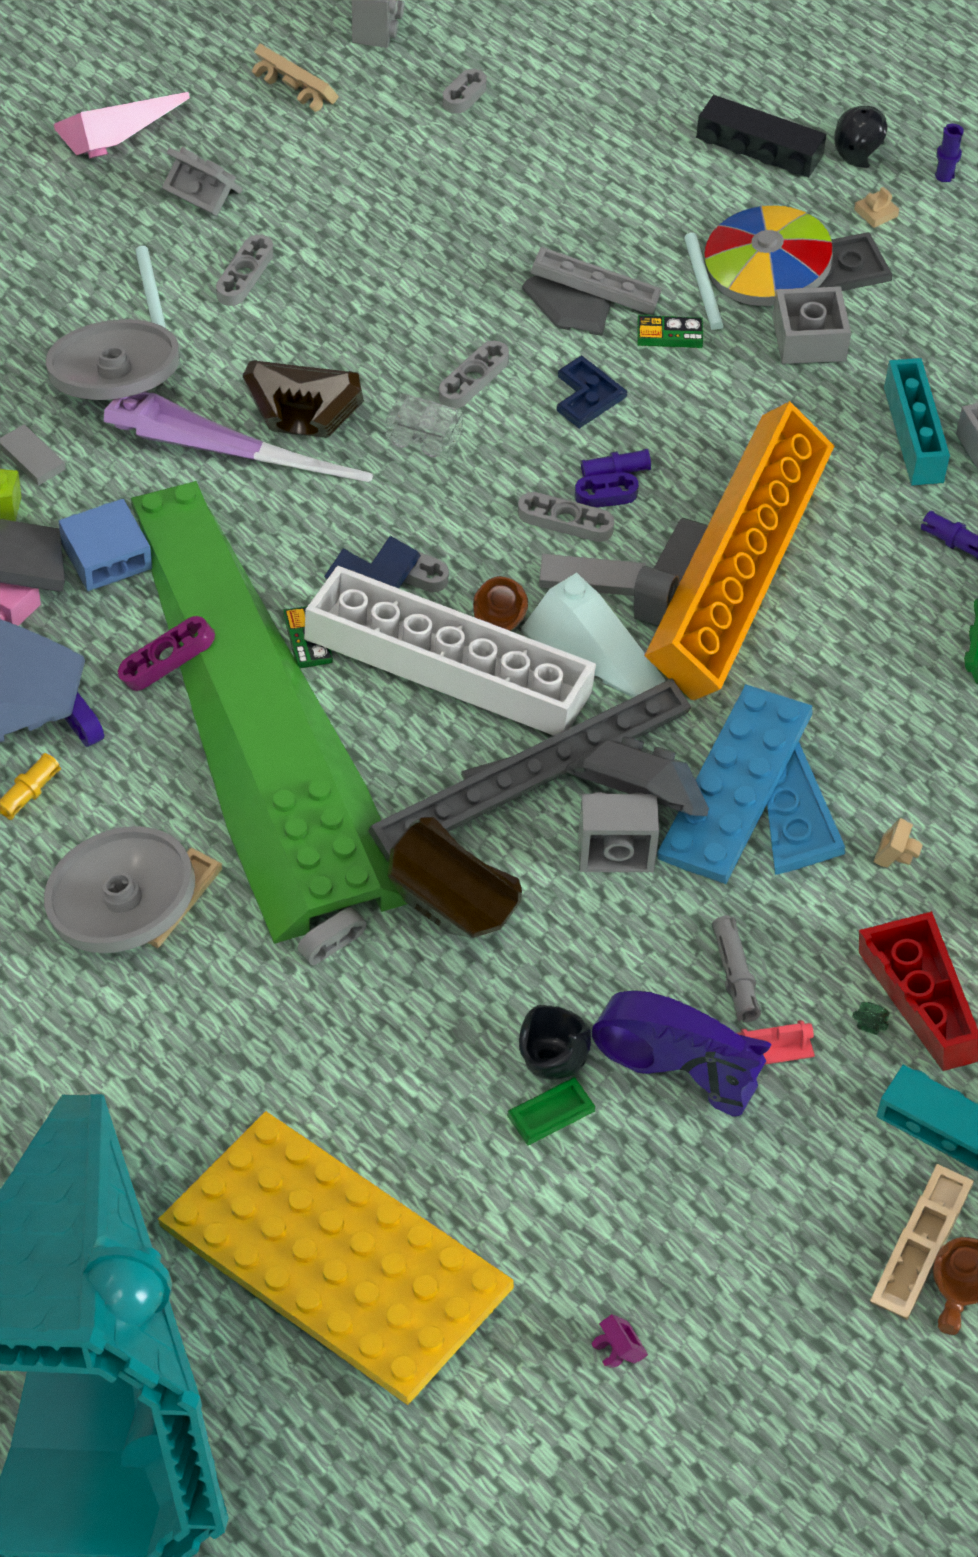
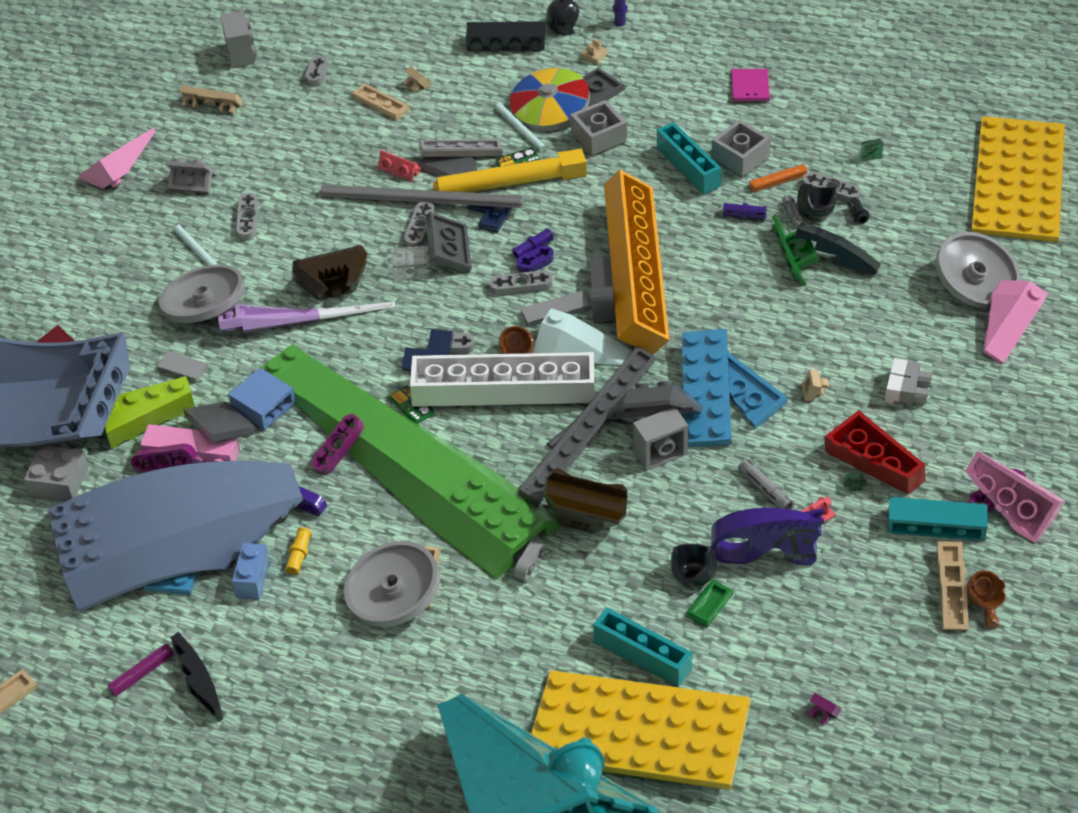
camera: 20 degrees left, 5 degrees down
(410, 1135) = (642, 647): none -> teal brick
(494, 274) = (397, 166): none -> coral hinge
(494, 416) = (448, 242): none -> dark grey tile
(501, 332) = (411, 195): none -> light grey axle
(527, 169) = (380, 101): none -> tan tile
(595, 155) = (416, 79): none -> tan tile
(734, 365) = (567, 165): none -> yellow brick

